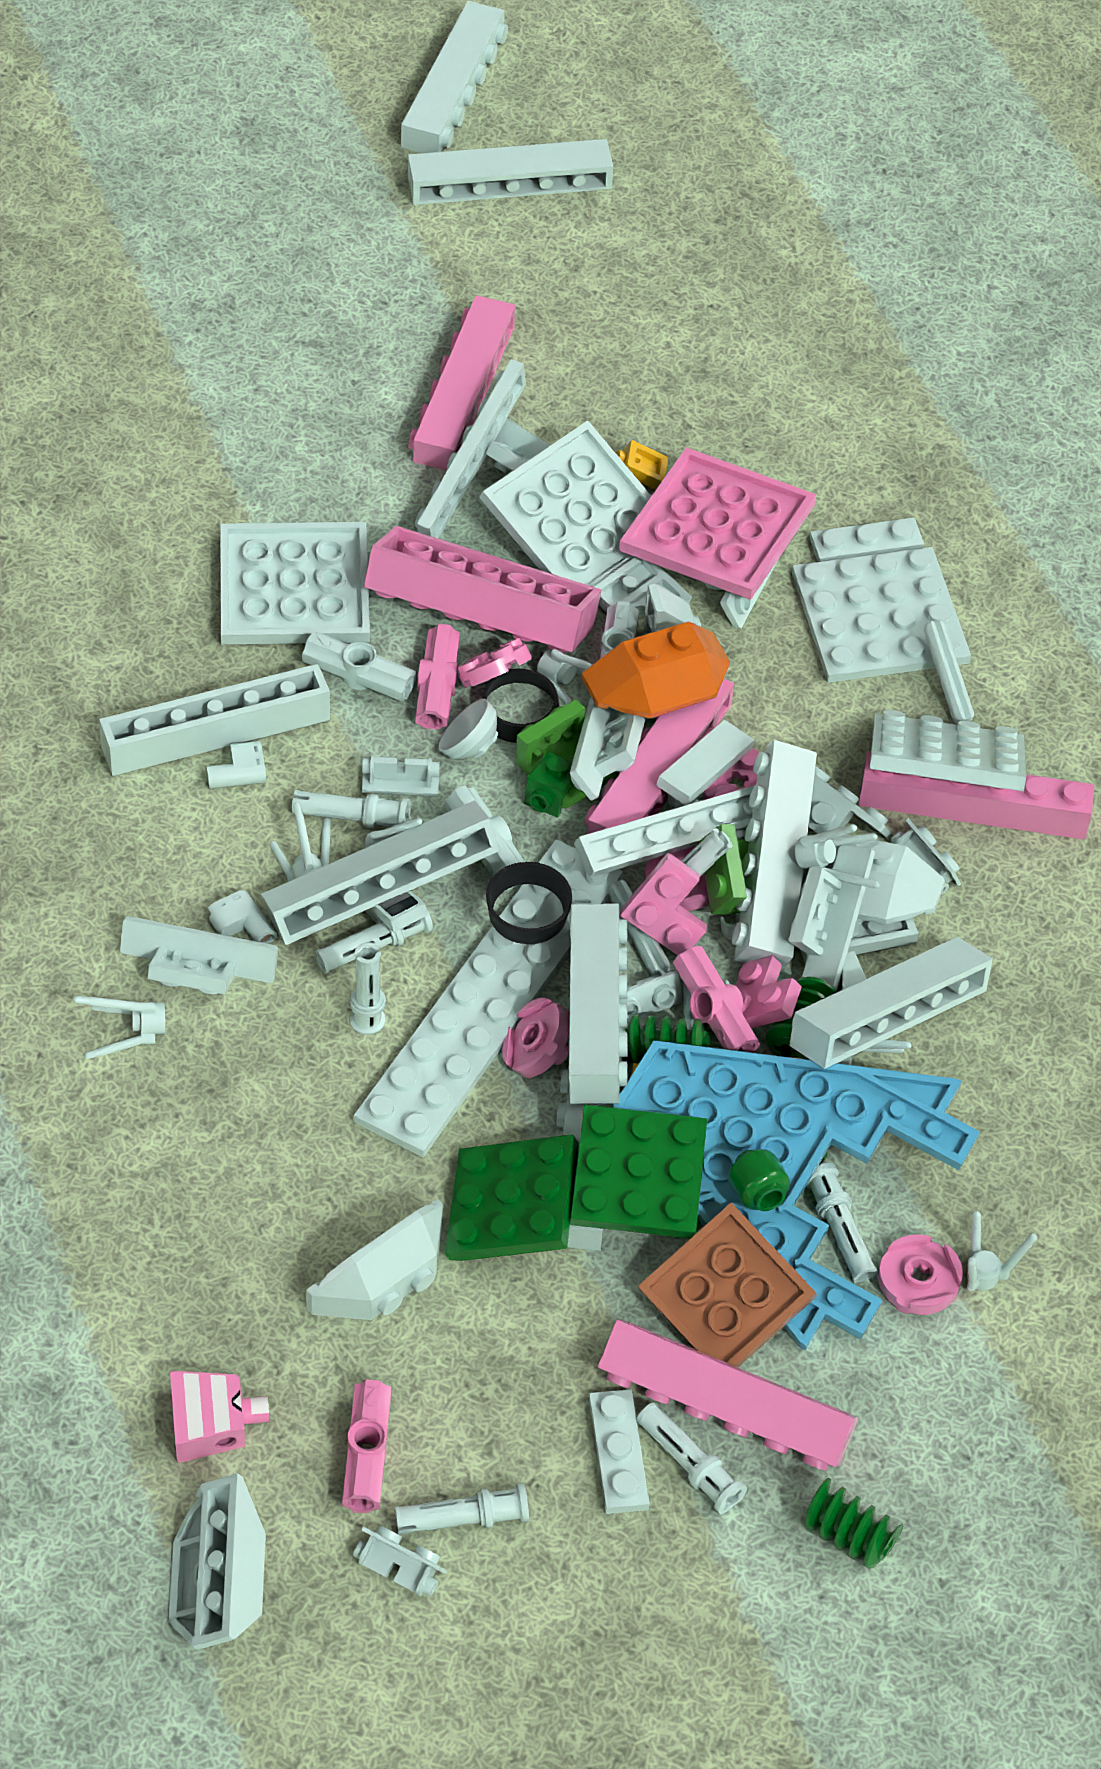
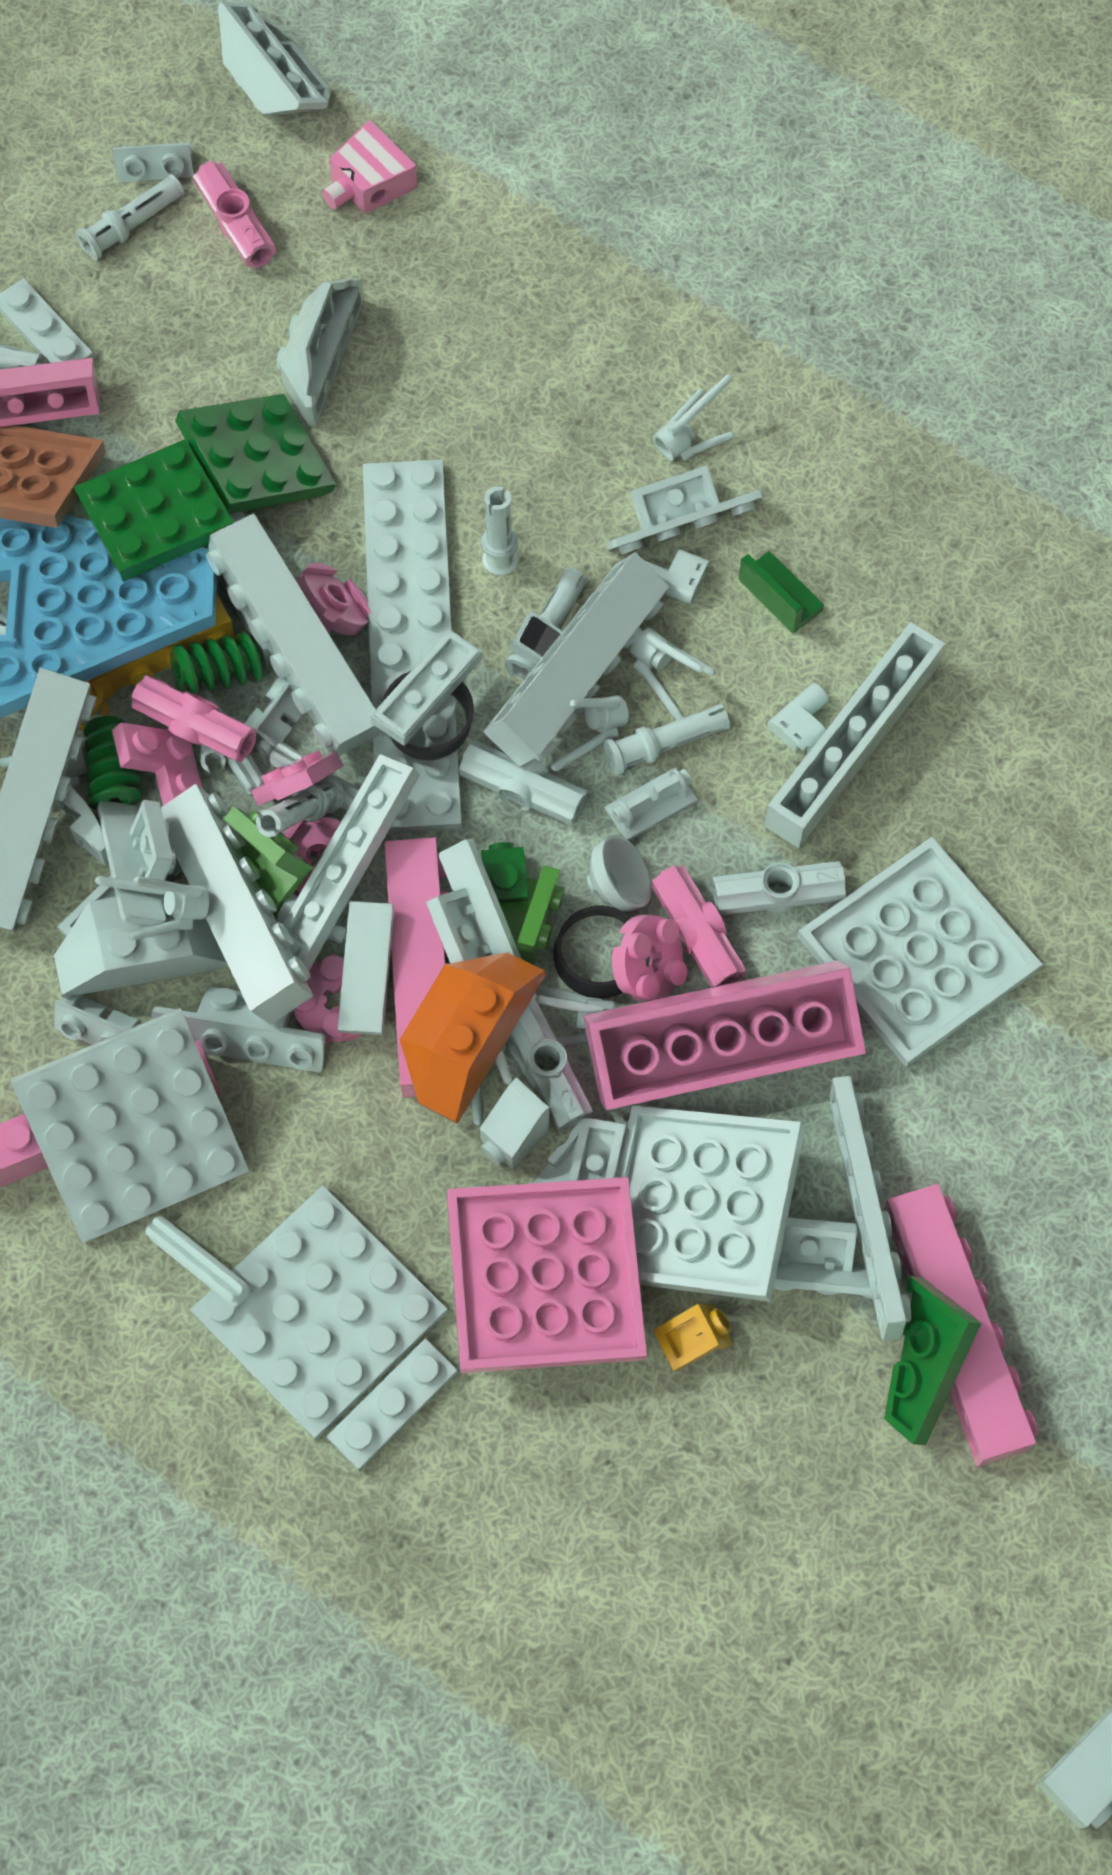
camera: 150 degrees right, 15 degrees up
(170, 861) = (779, 591): none -> green panel
(492, 350) = (930, 1360): none -> green wing
(519, 903) = (426, 687): none -> light aqua tile
(759, 1180) = (42, 549): green head -> none

